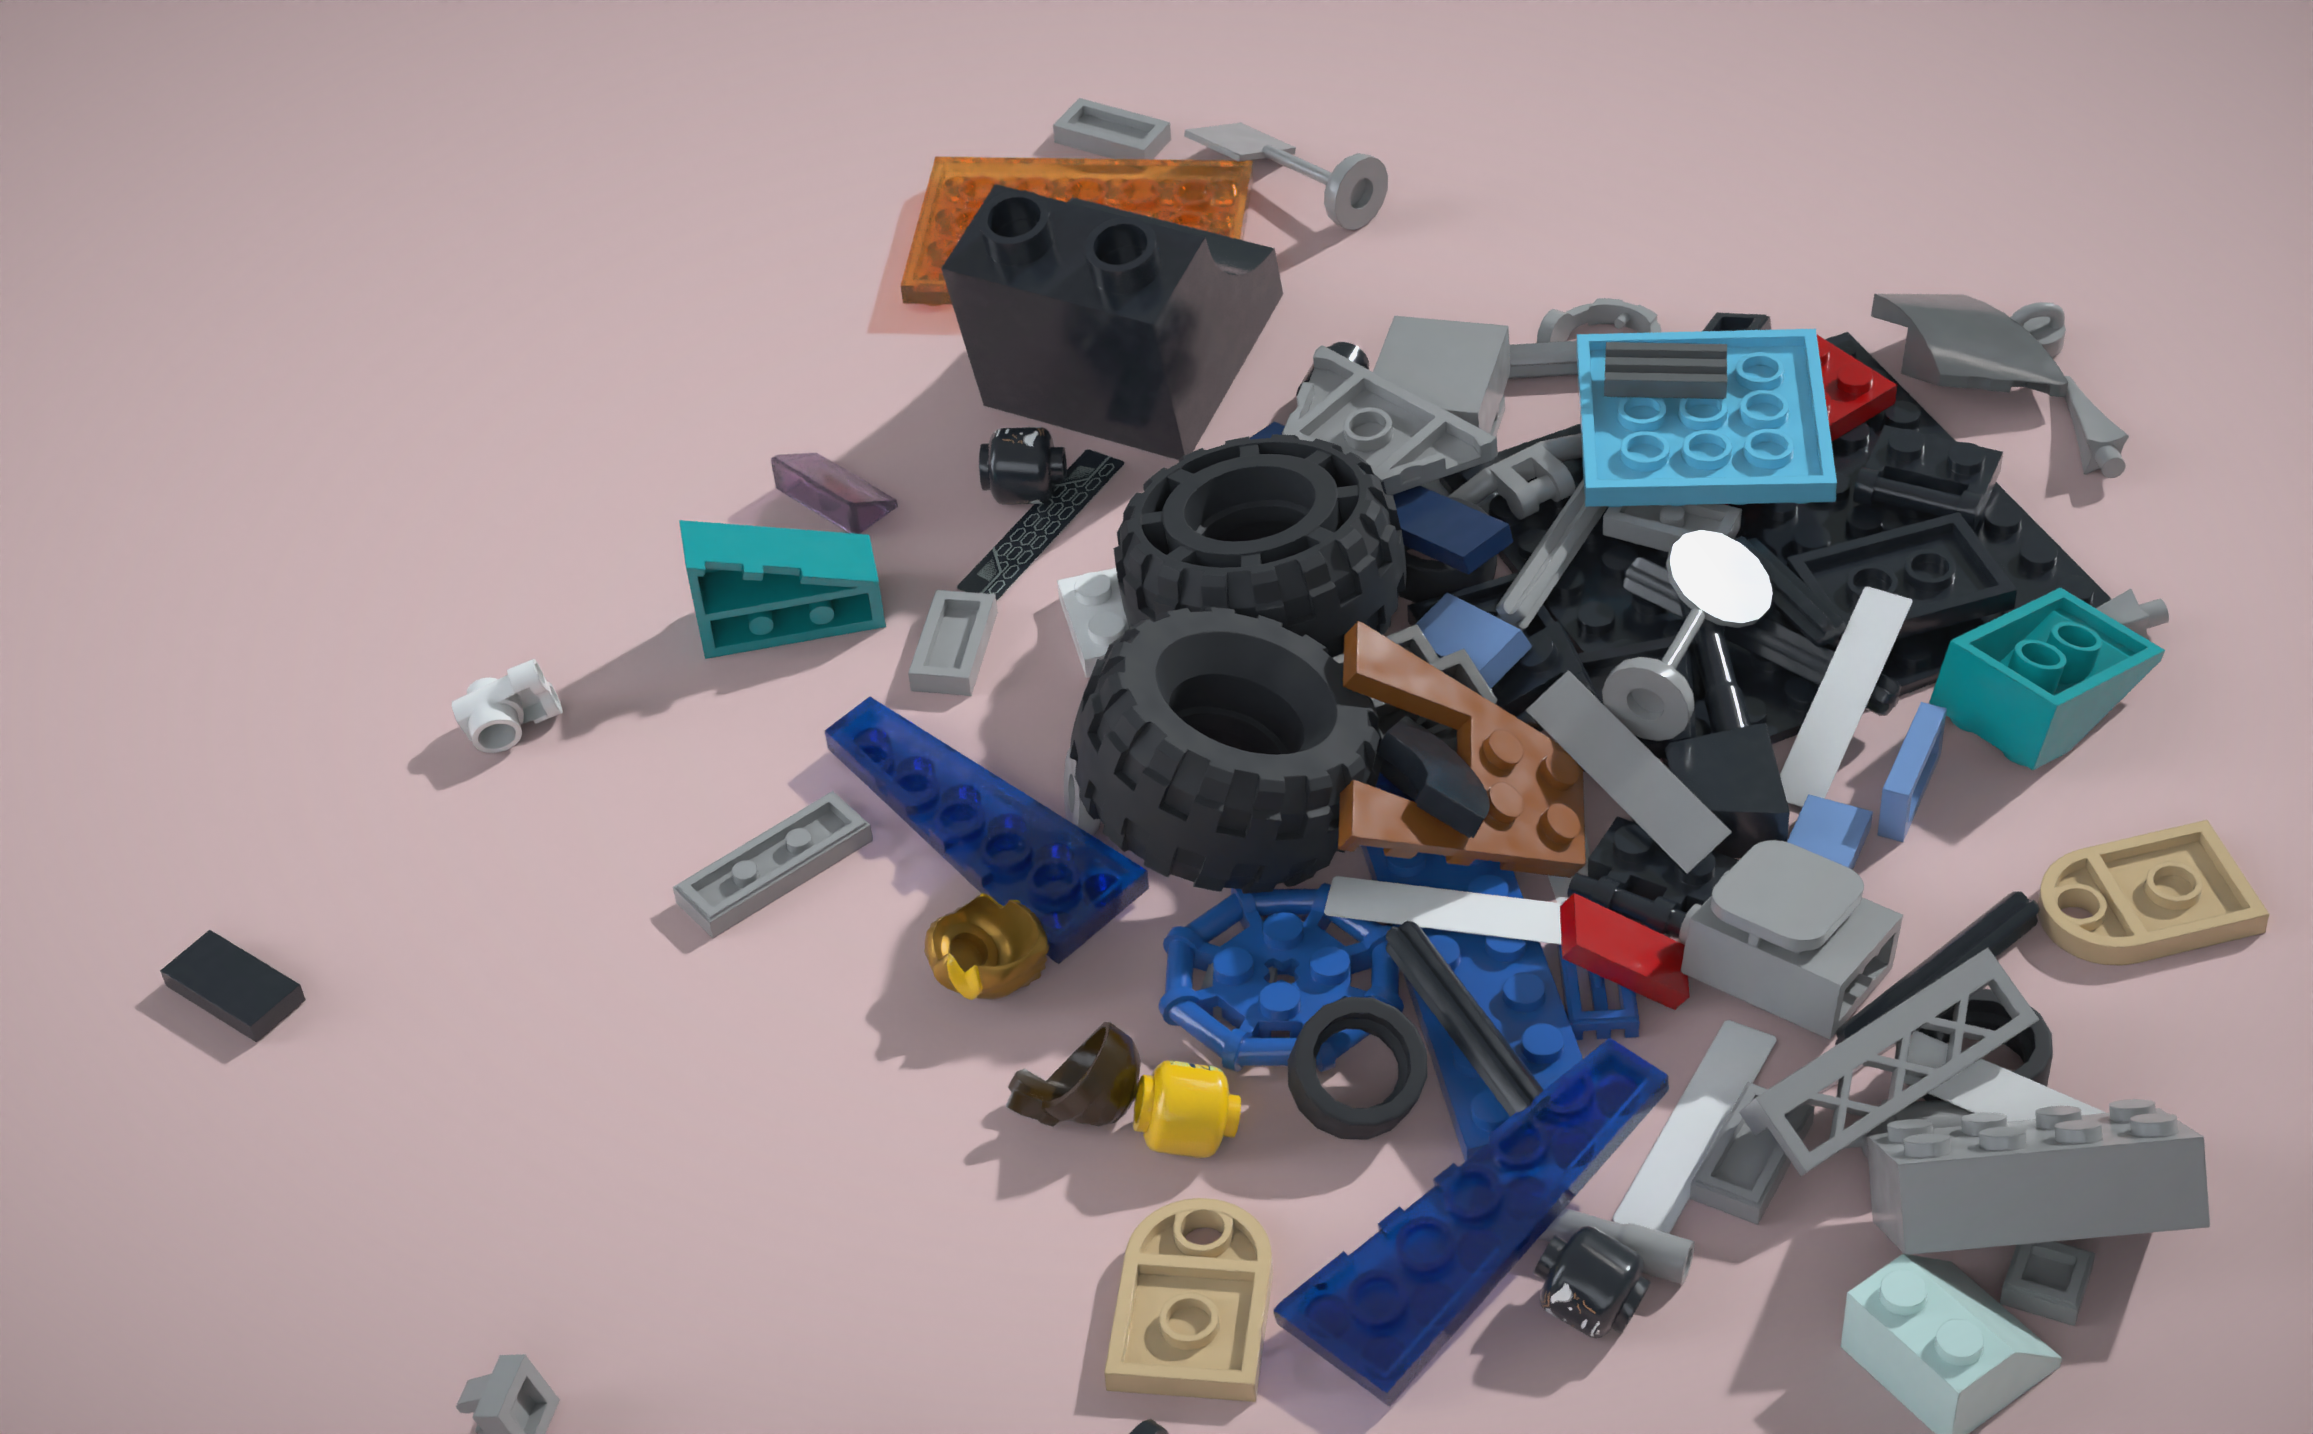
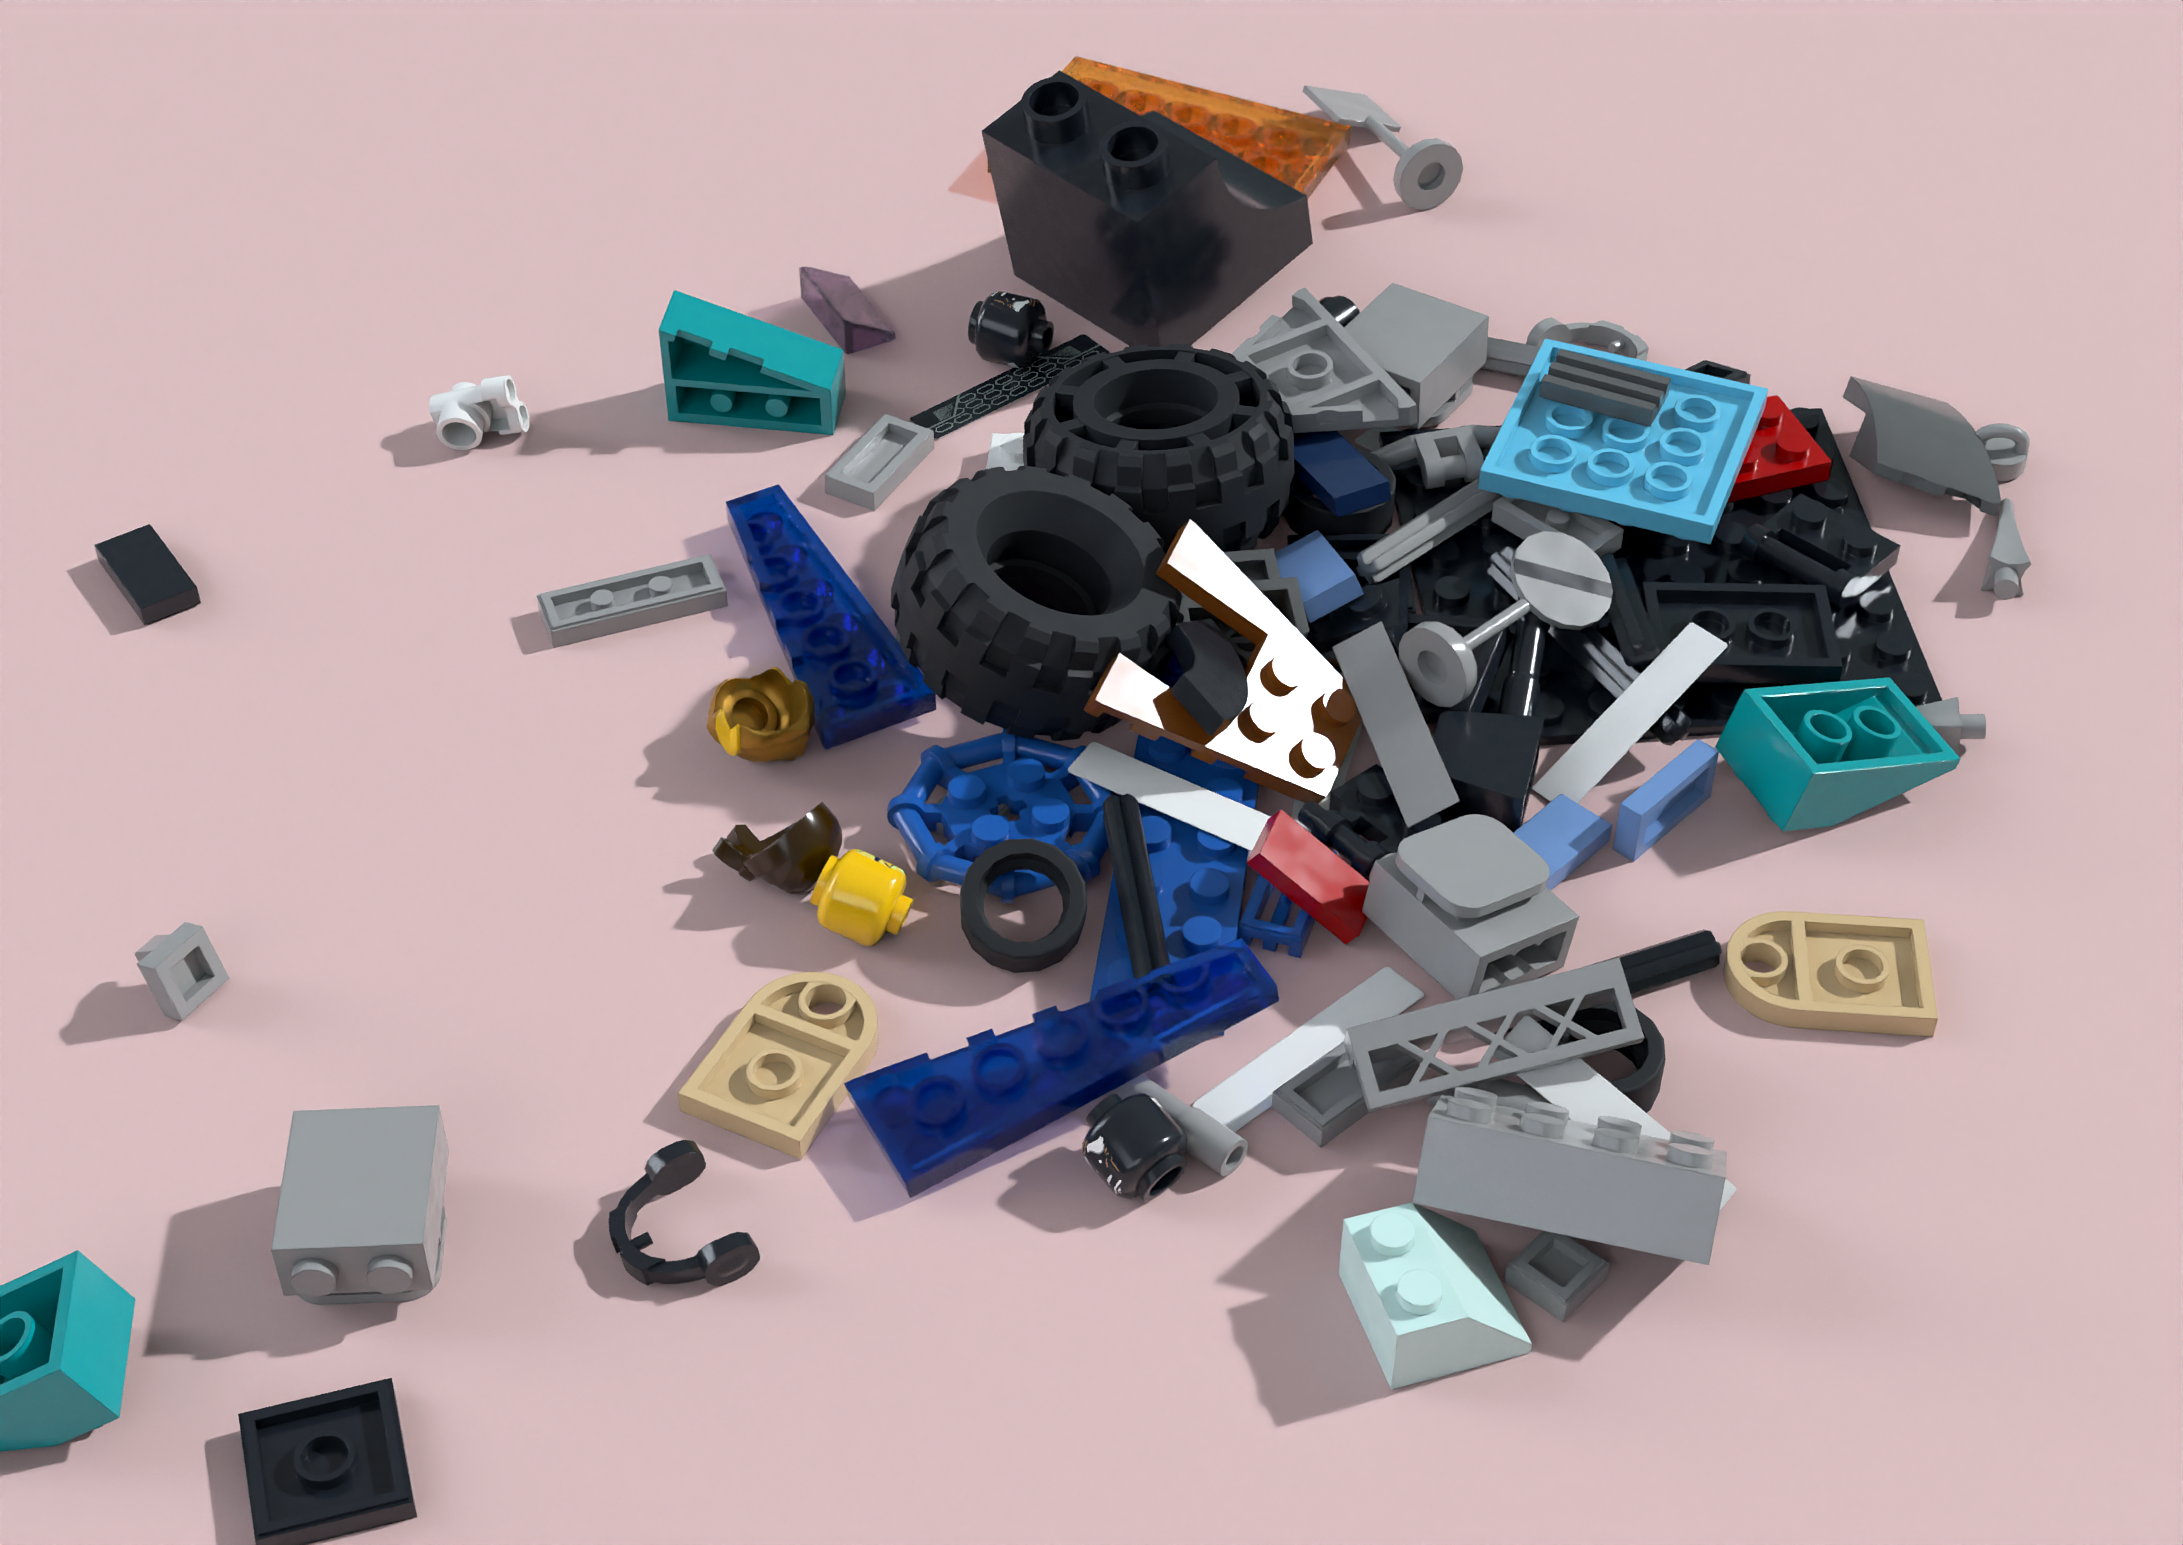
camera: 15 degrees right, 0 degrees up
(1111, 131) = (1245, 74): light grey tile -> none

